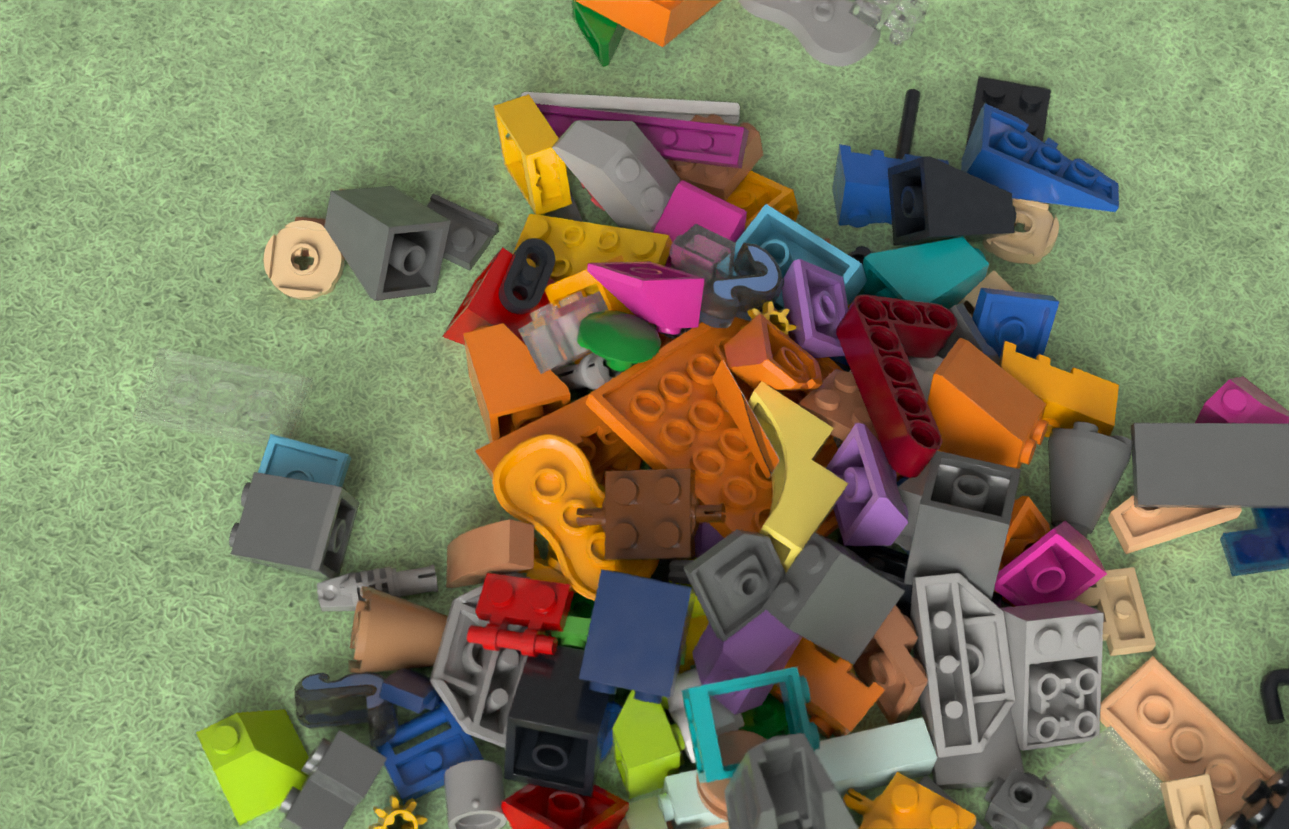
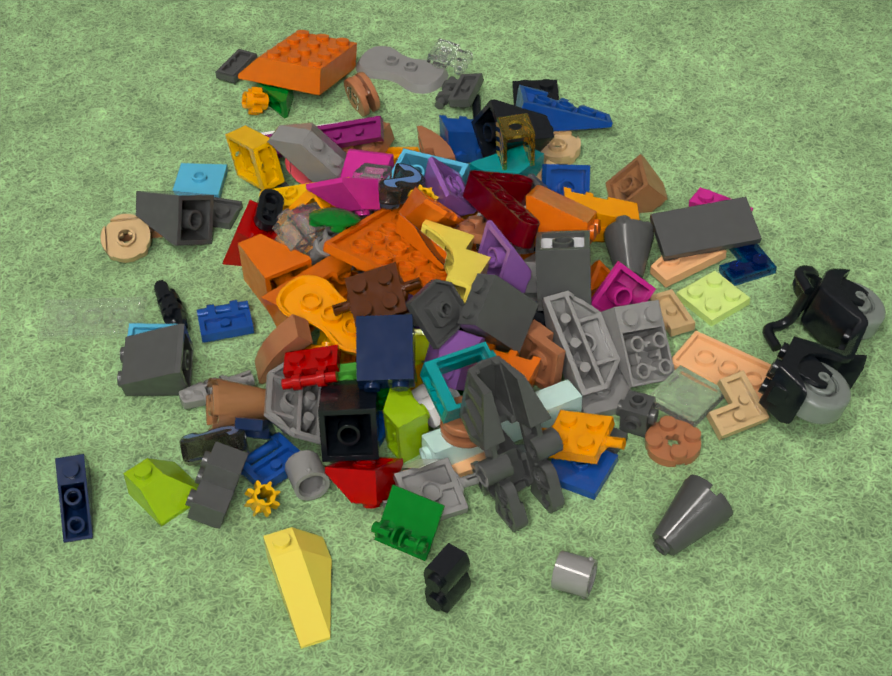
camera: 10 degrees left, 15 degrees down
(120, 748) = (75, 497): none -> dark blue slope
(343, 409) = (169, 304): none -> black hinge
(419, 464) = (225, 321): none -> blue plate
(443, 166) = (201, 178): none -> medium azure plate
(562, 28) = (255, 100): none -> light orange gear
(729, 53) = (362, 94): none -> nougat head
(821, 199) = (433, 144): none -> nougat slope
(897, 79) = (459, 91): none -> dark grey plate
(930, 236) = (504, 133): none -> clear yellow piece
(1126, 345) = (638, 184): none -> medium nougat slope
(1197, 595) = (713, 298): none -> yellowish green plate

